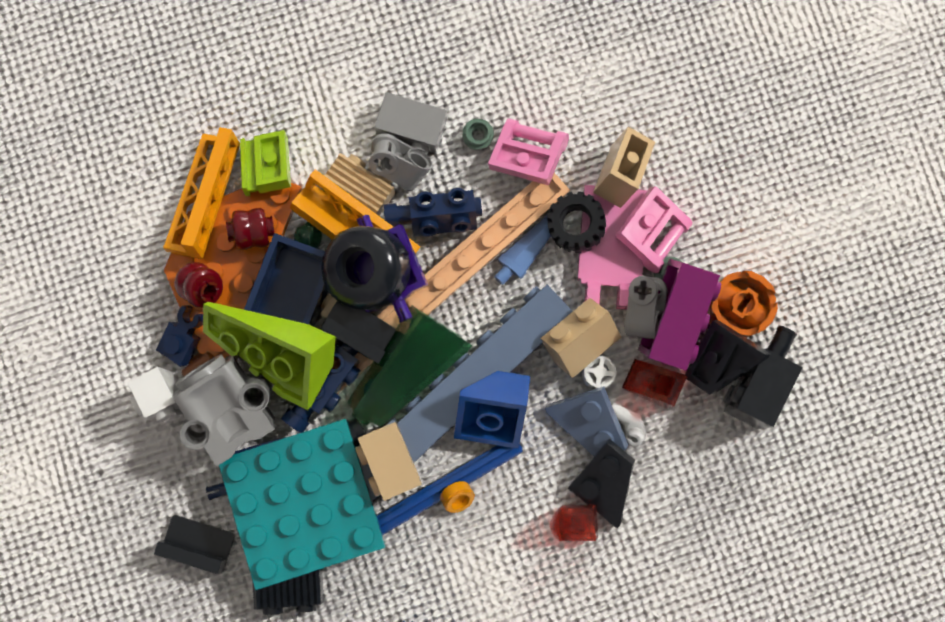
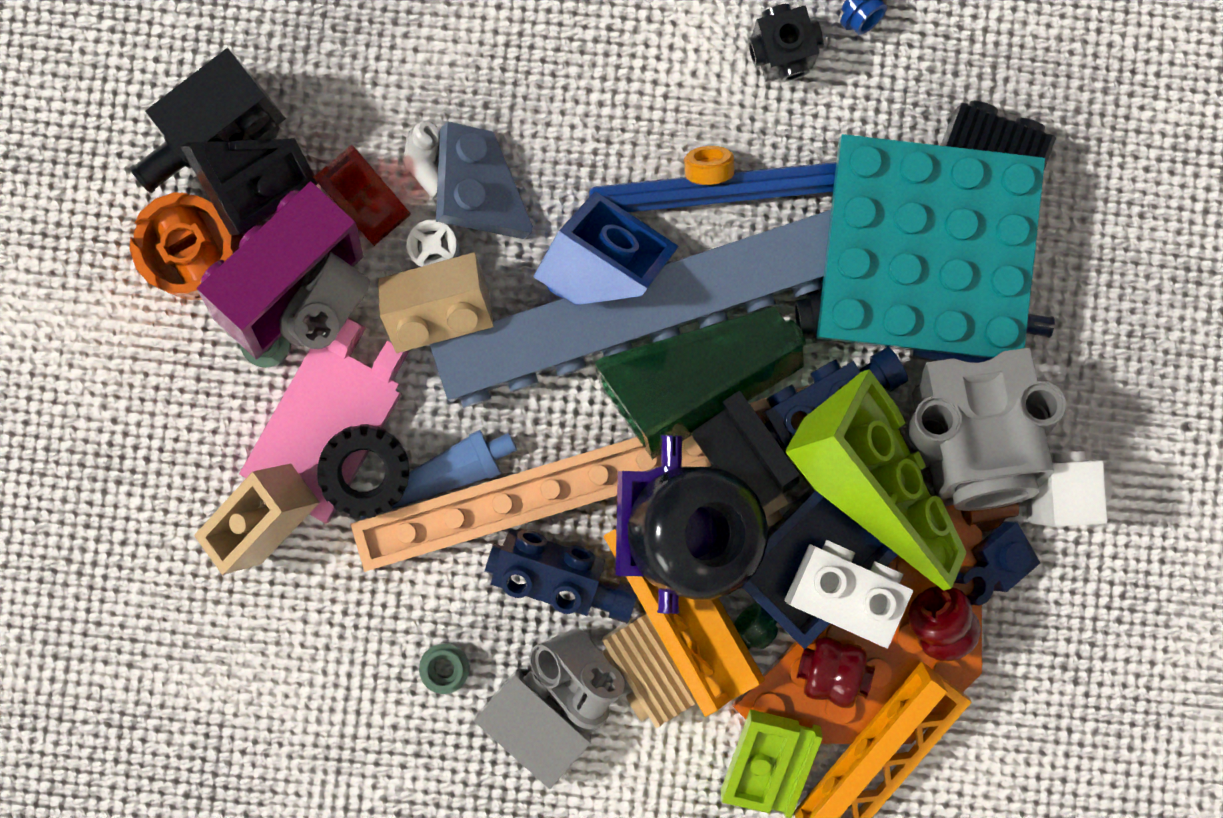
camera: 155 degrees left, 5 degrees up
(196, 544) = (1097, 264): black panel -> none
(261, 273) = (848, 594): none -> white brick
(388, 461) = (785, 247): tan brick -> none
(444, 580) = (781, 58): none -> black brick
(526, 159) = (394, 597): bright pink plate -> none
(575, 523) = (564, 56): clear red plate -> none
(606, 482) = (496, 92): black wing -> none
(646, 224) = (263, 423): bright pink plate -> none

